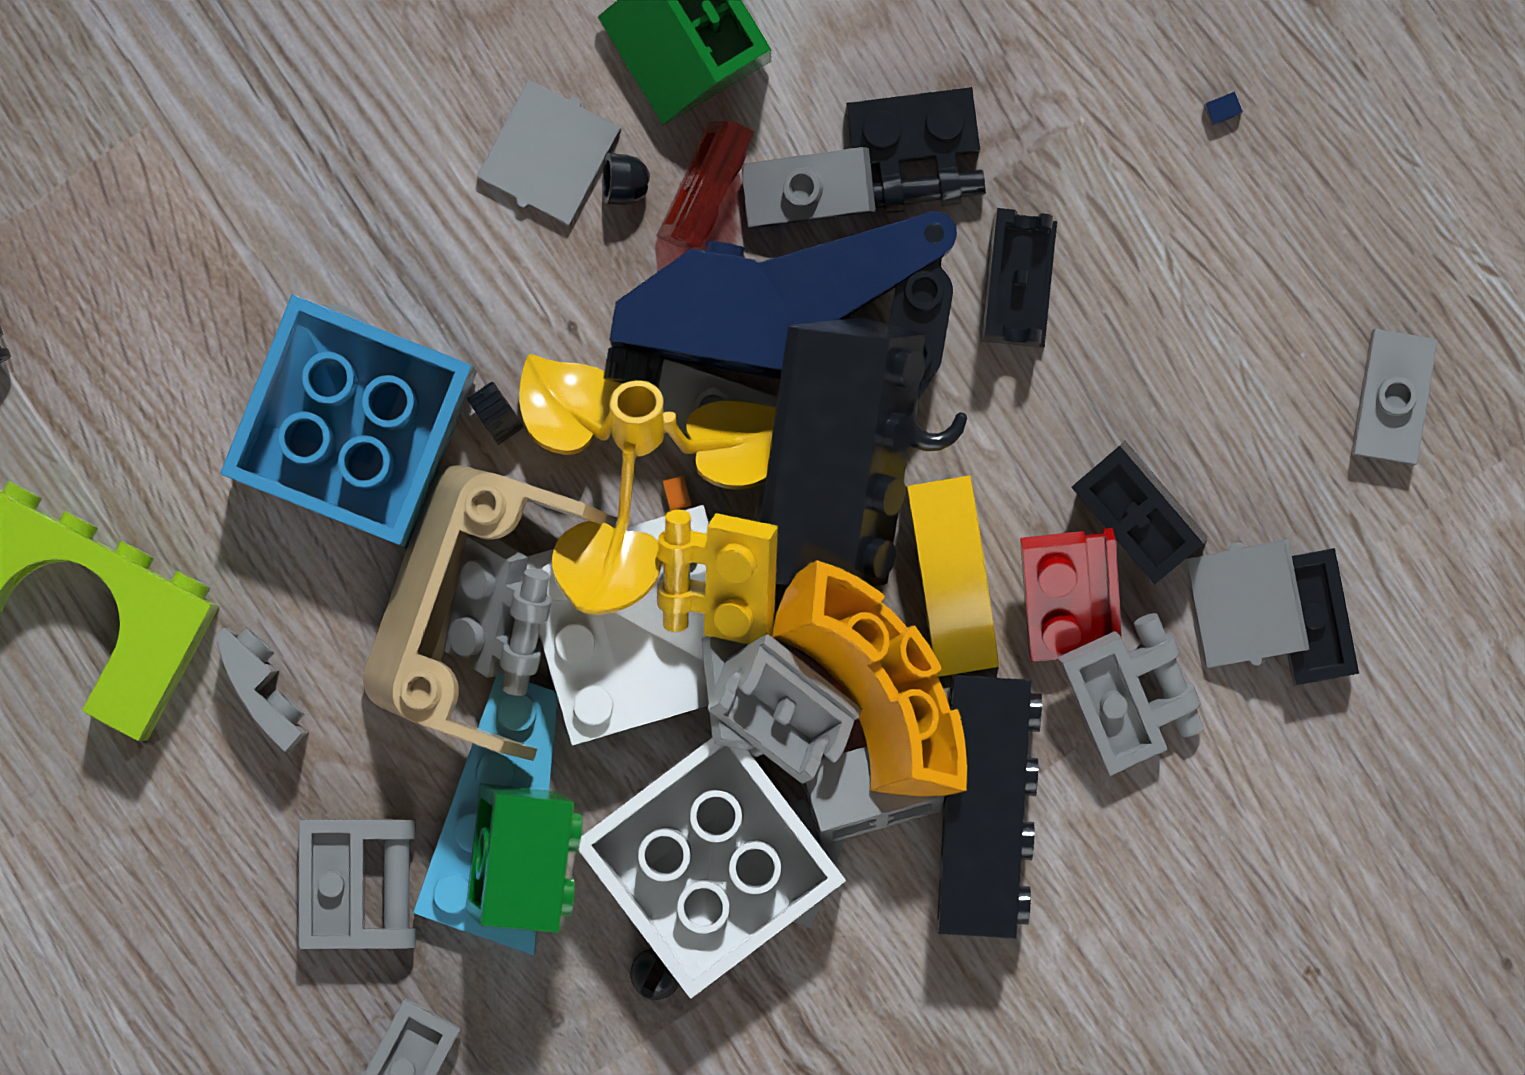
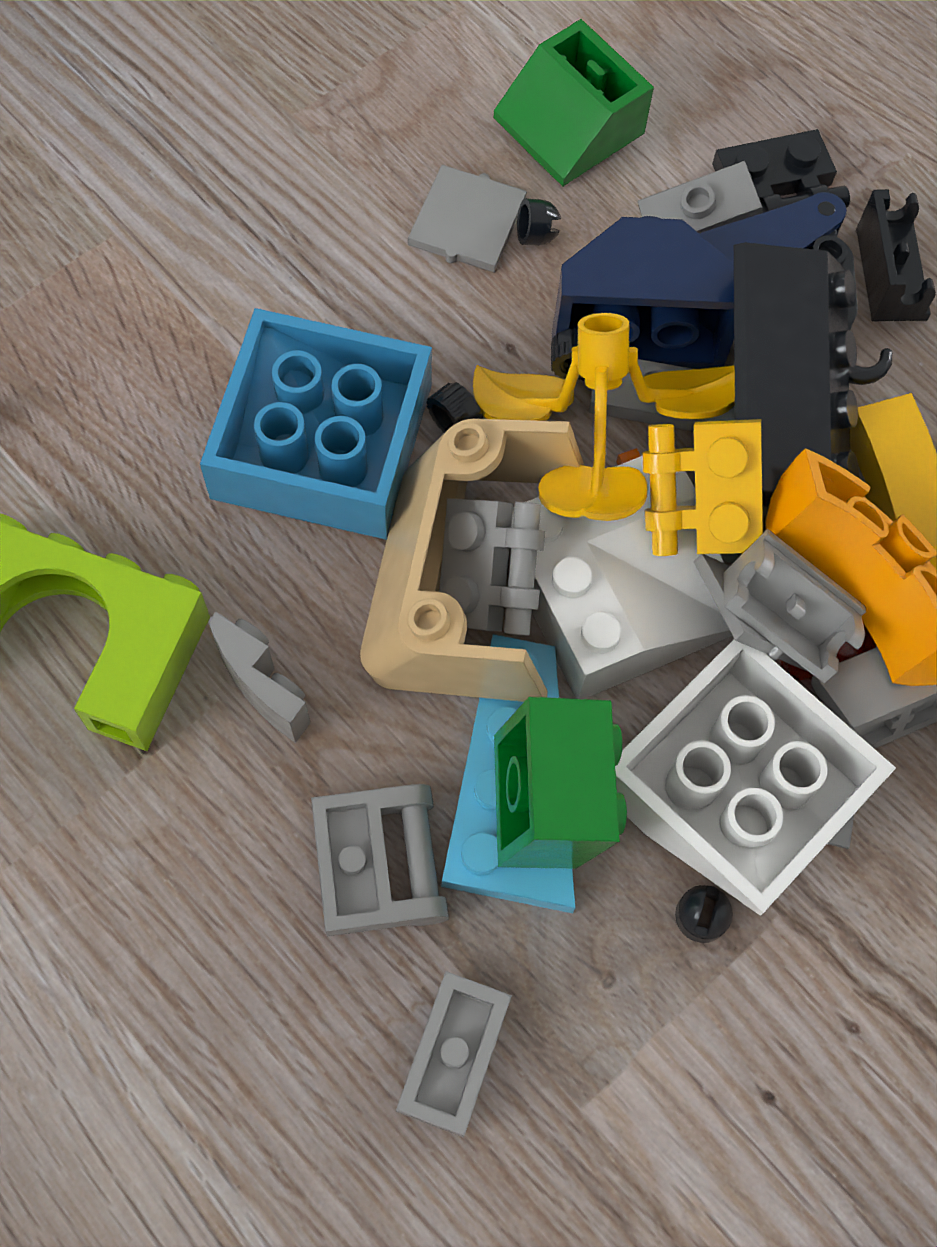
camera: 15 degrees left, 20 degrees down
(705, 184) = (618, 190): clear red plate -> none

